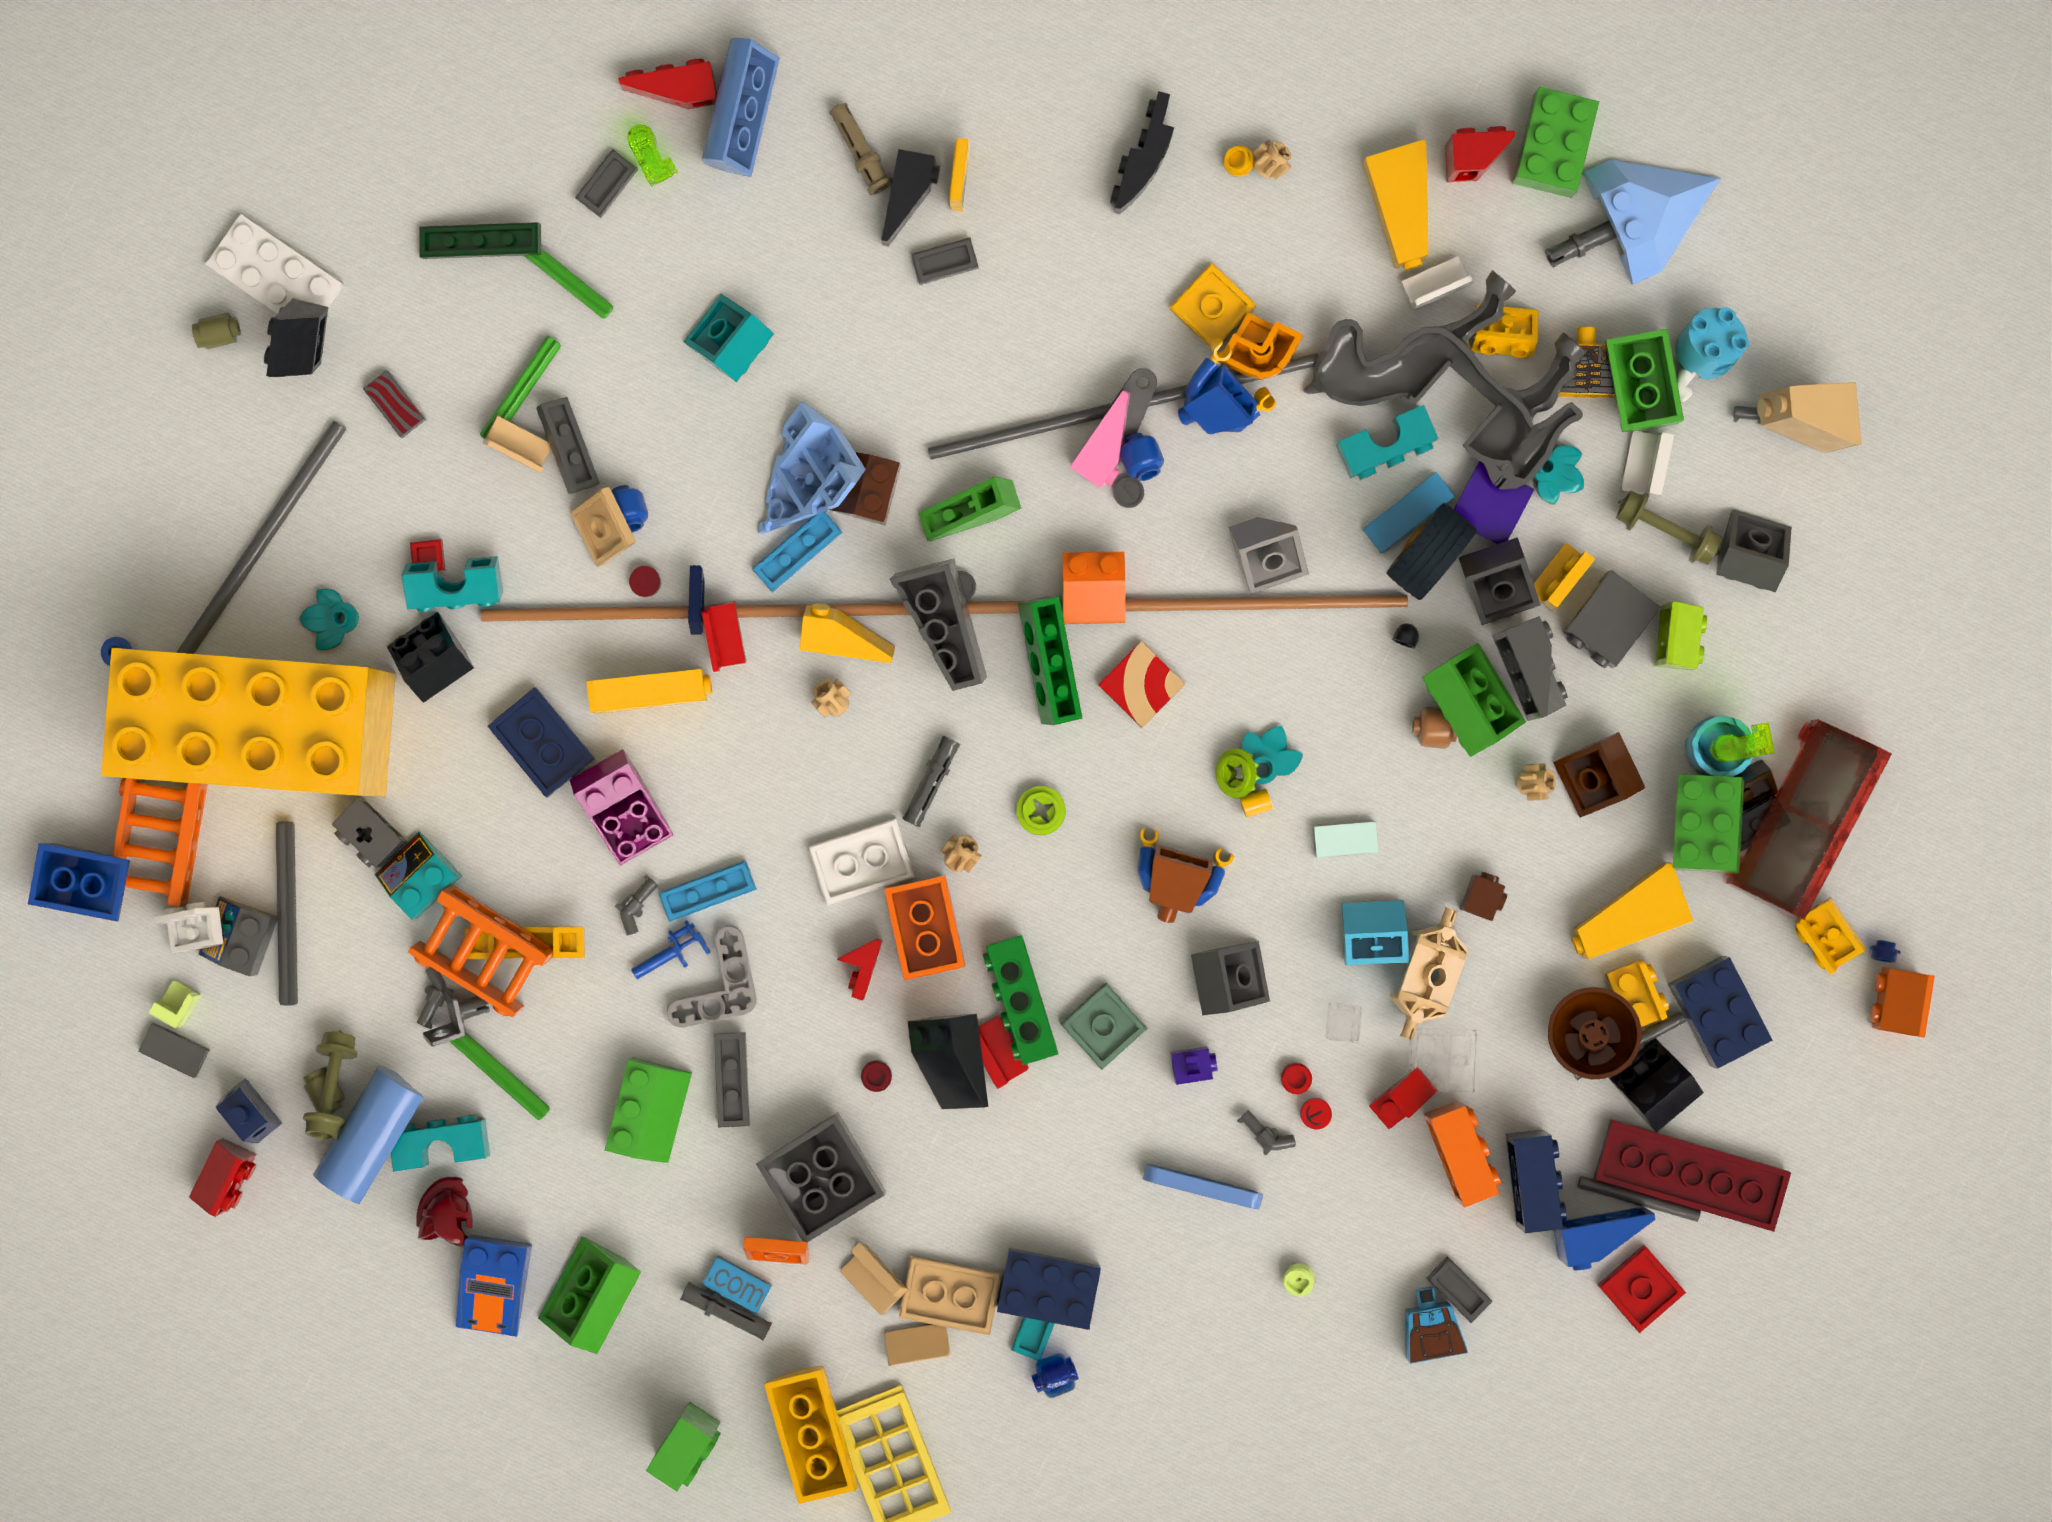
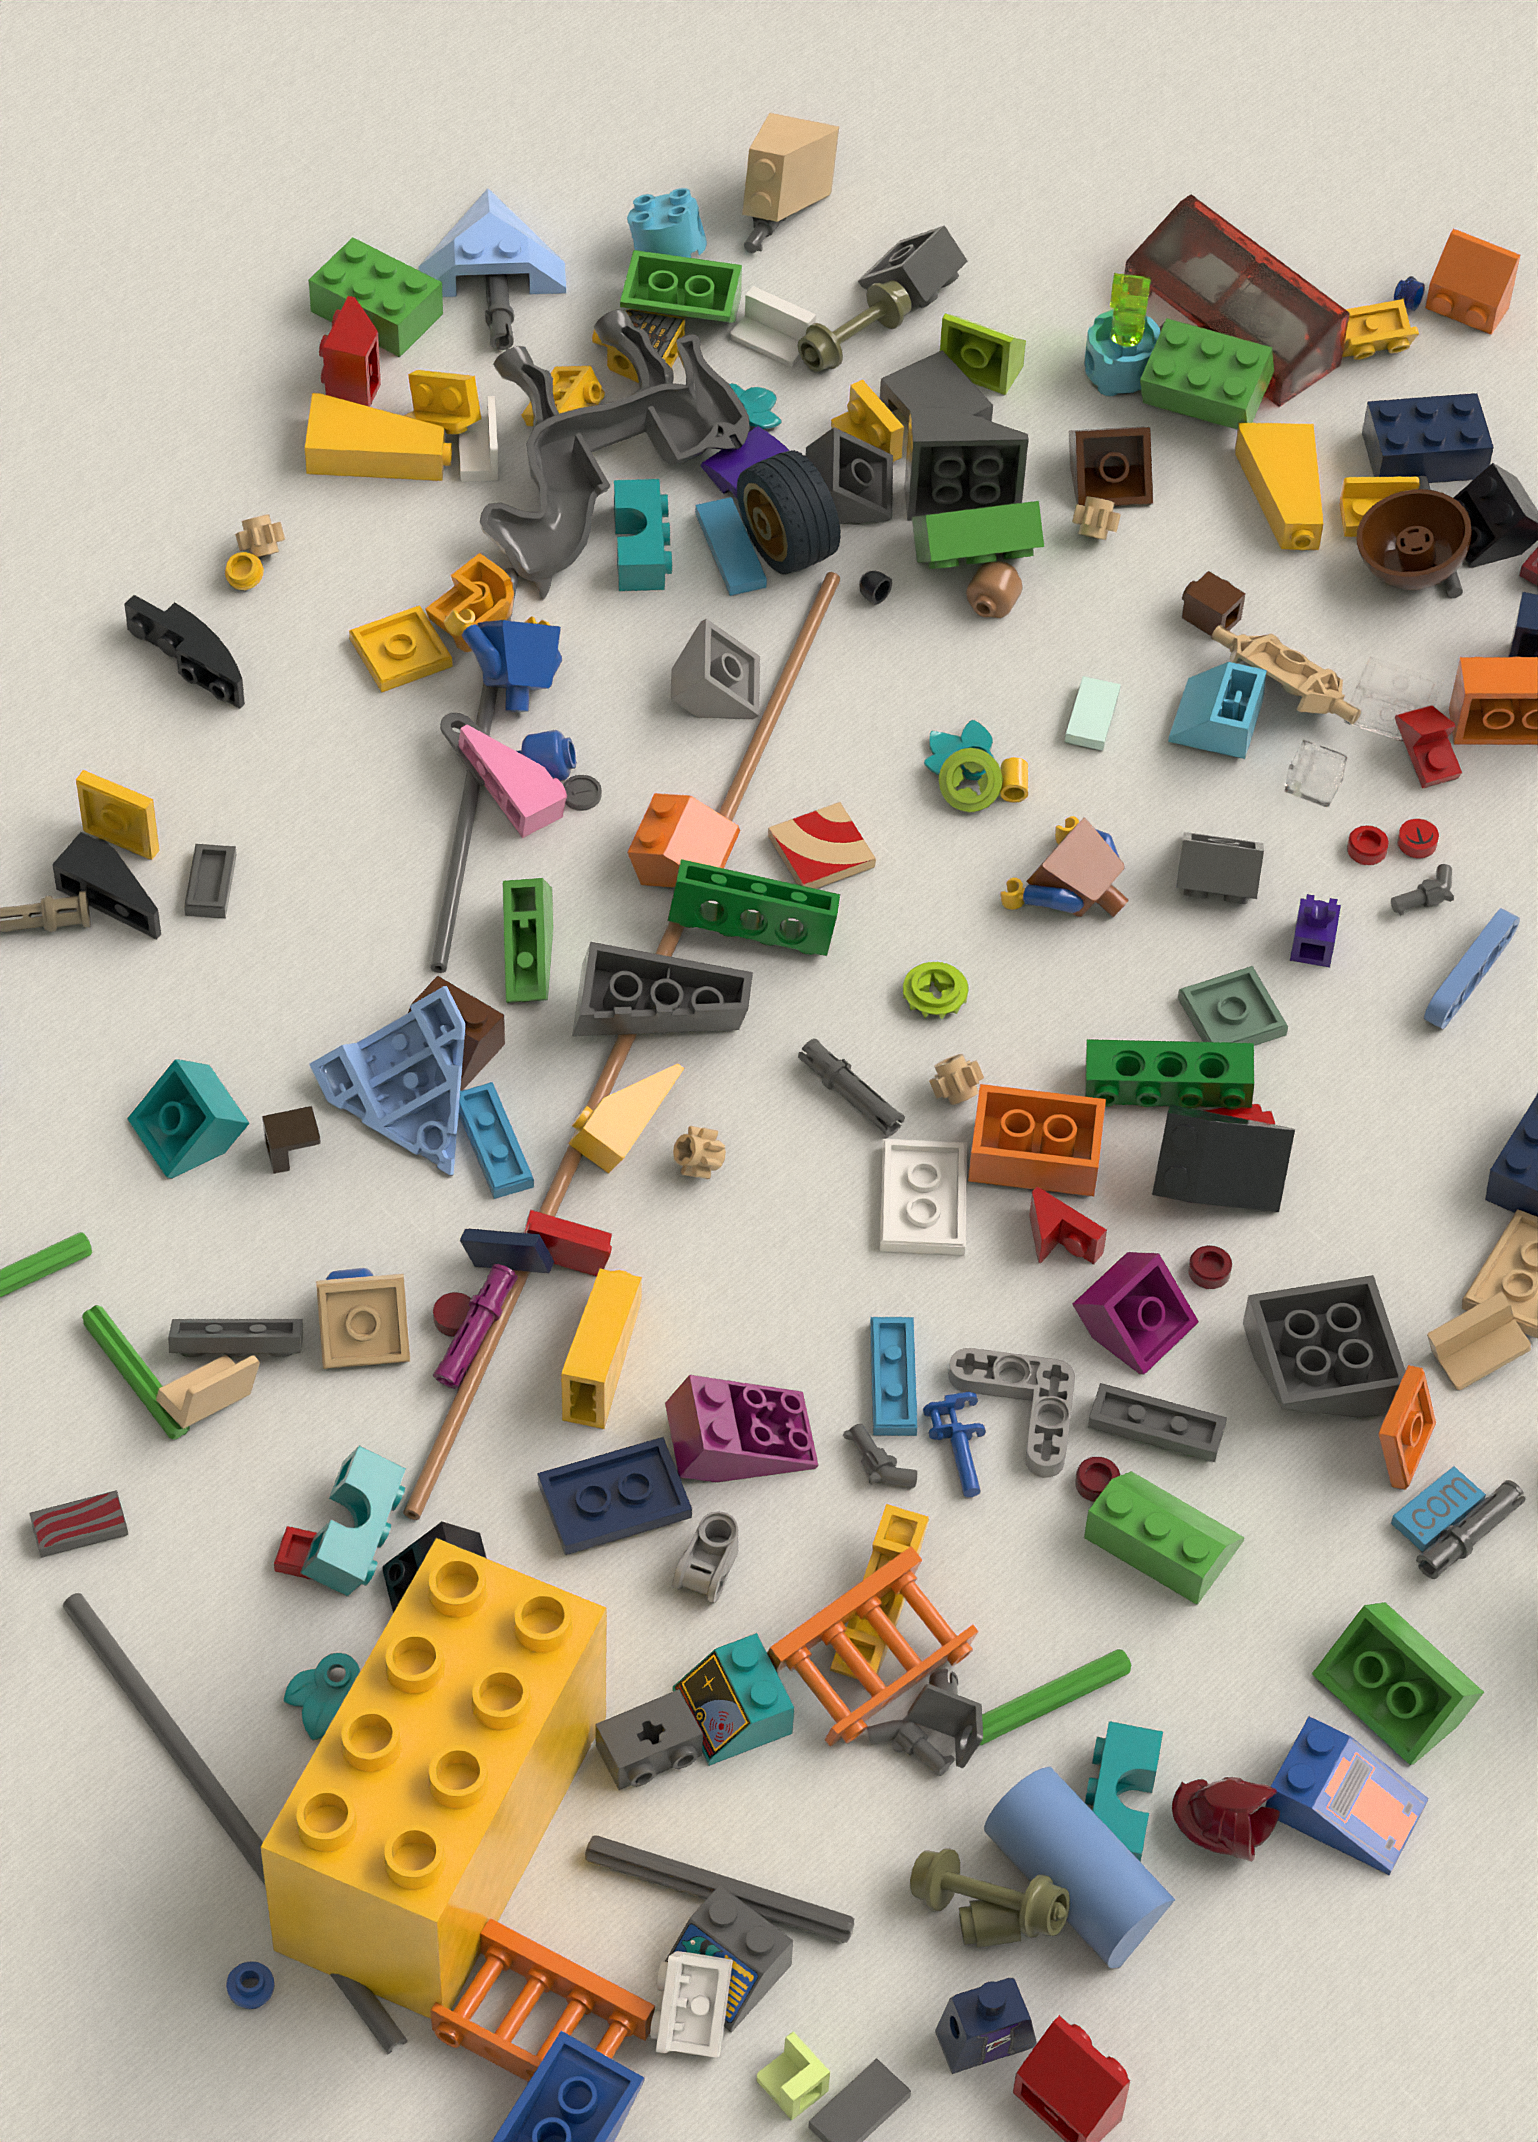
camera: 75 degrees left, 35 degrees down
(510, 821) = (706, 1563): none -> light grey piece
(631, 601) = (483, 1311): none -> magenta pin
(677, 1053) = (1094, 1476): none -> dark red tile
(737, 414) = (289, 1132): none -> dark brown panel
(814, 1038) = (1136, 1310): none -> magenta slope
(1453, 241) = (444, 400): none -> yellow bracket

